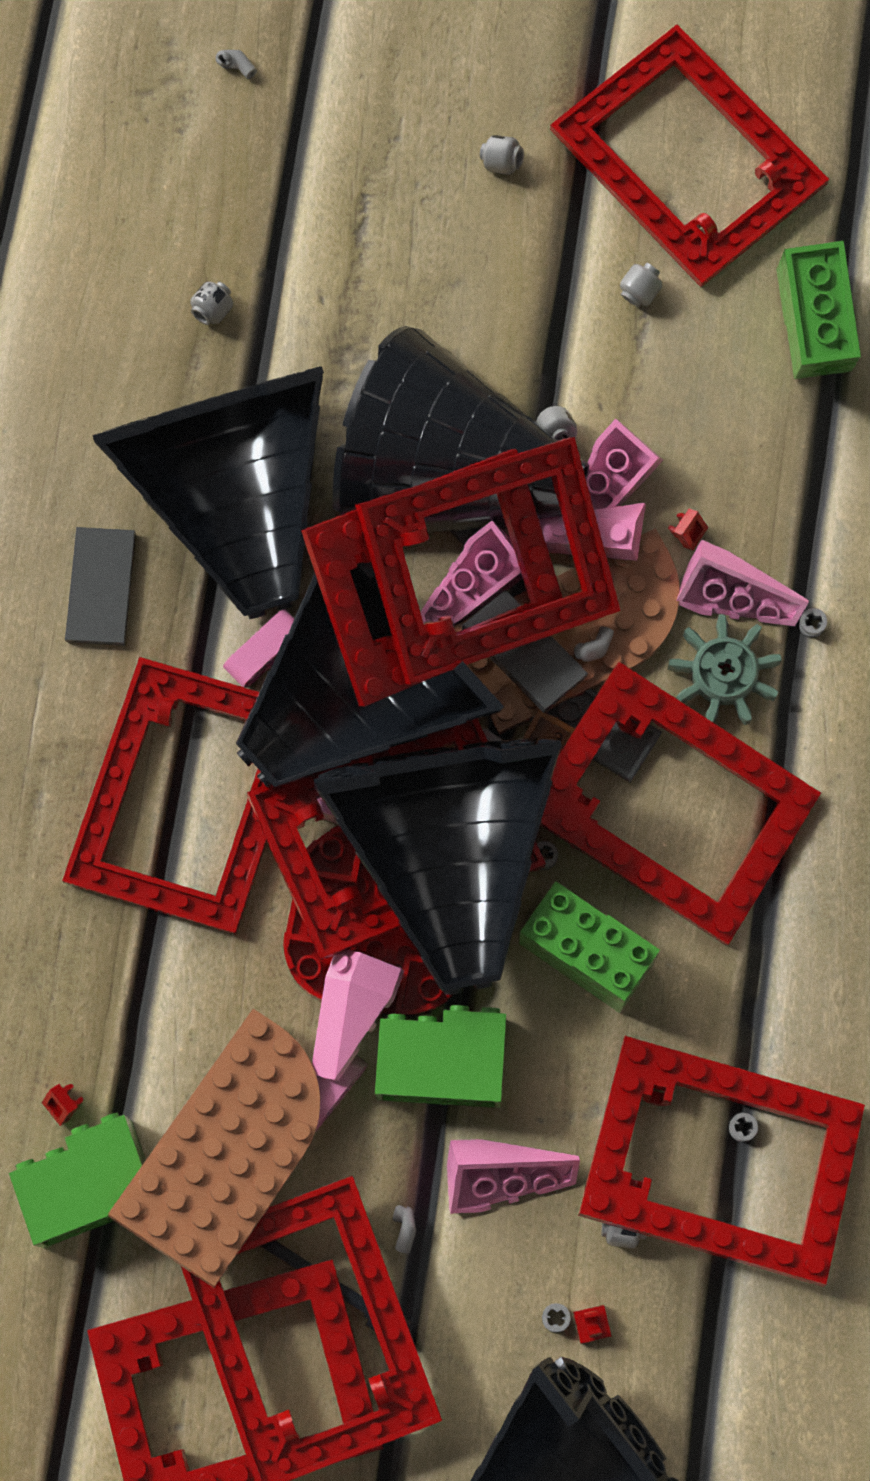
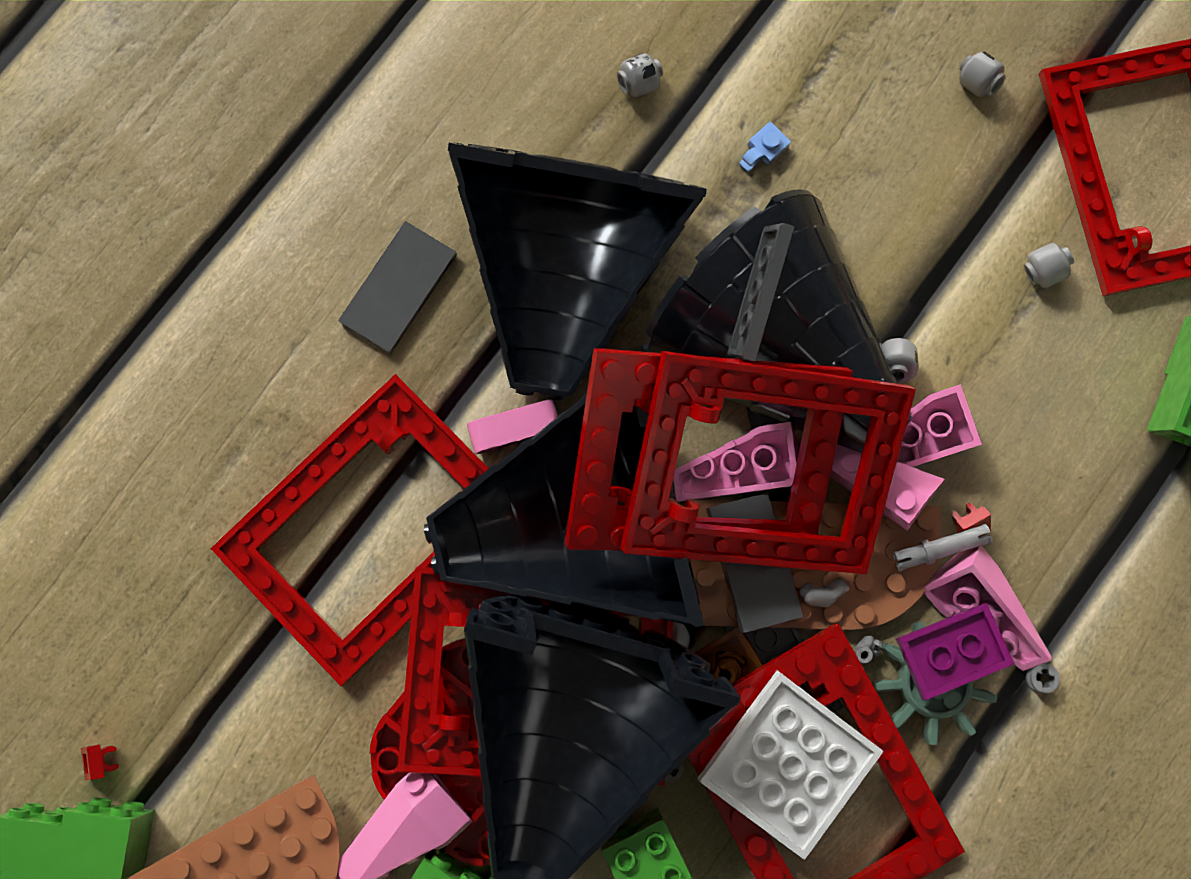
camera: 20 degrees right, 5 degrees up
(350, 307) = (764, 146): none -> light blue plate
(408, 423) = (760, 291): none -> dark grey tile
(637, 790) = (790, 765): none -> white plate
(657, 672) = (867, 649): none -> light grey arm
(662, 567) = (928, 551): none -> light grey pin
(723, 634) = (954, 651): none -> magenta plate

